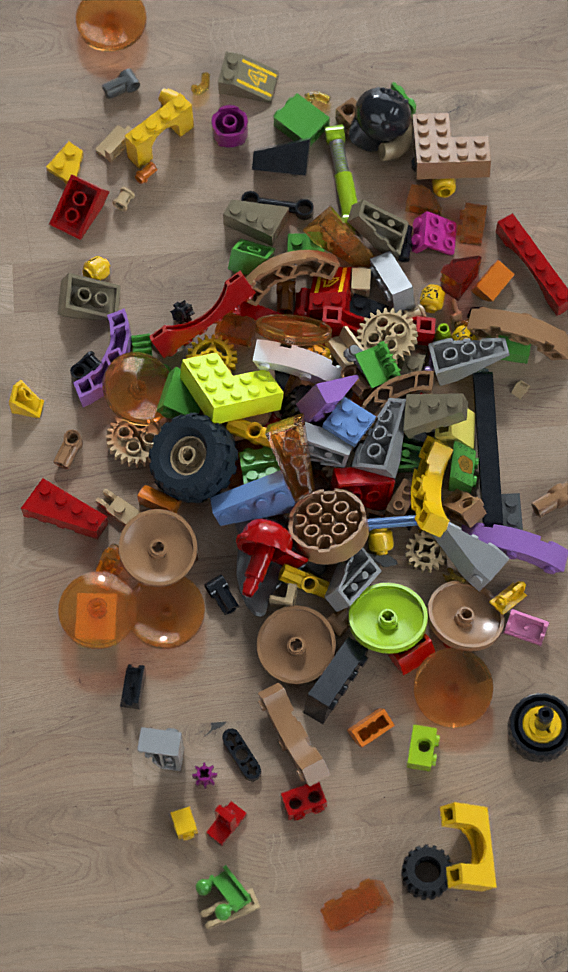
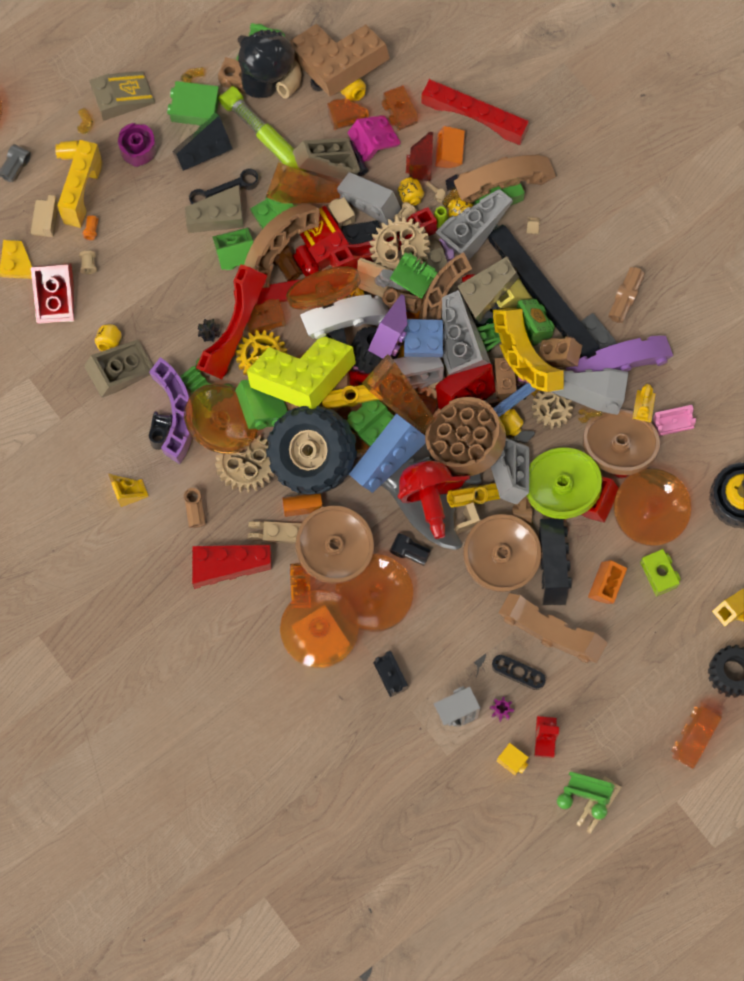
camera: 35 degrees left, 5 degrees up
(301, 795) = (593, 675): red brick -> none

